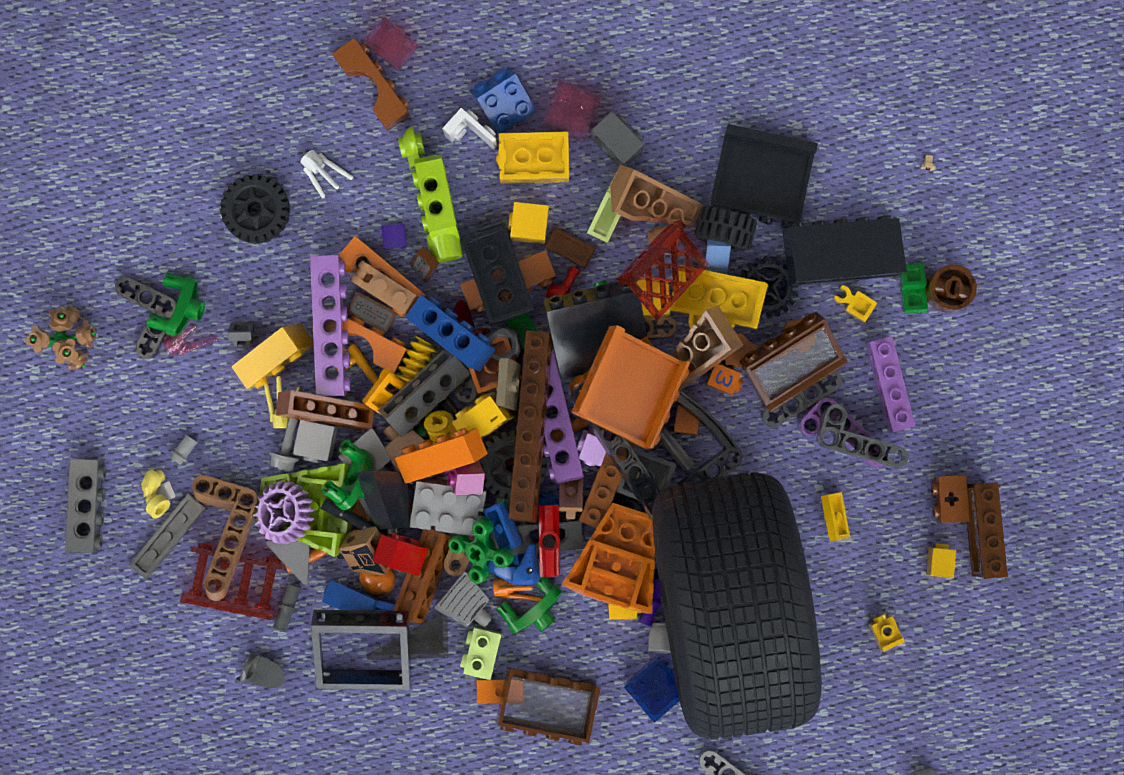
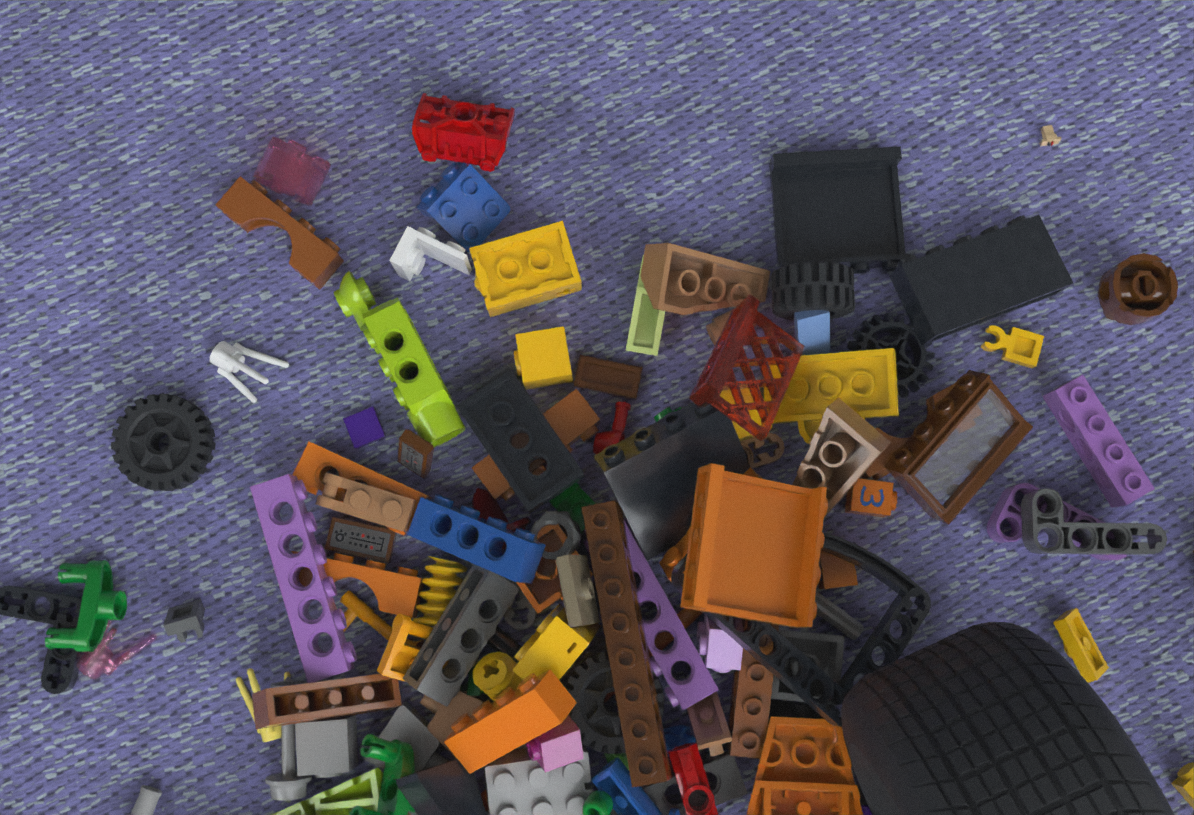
camera: 15 degrees left, 5 degrees down
(273, 355) = (236, 639): yellow wedge -> none
(515, 48) = (461, 131): none -> red piece
(572, 111) = (558, 193): clear pink brick -> none
(617, 139) = (631, 213): dark grey brick -> none
(803, 401) = (986, 499): dark grey beam -> none
(913, 289) = (1084, 307): green slope -> none

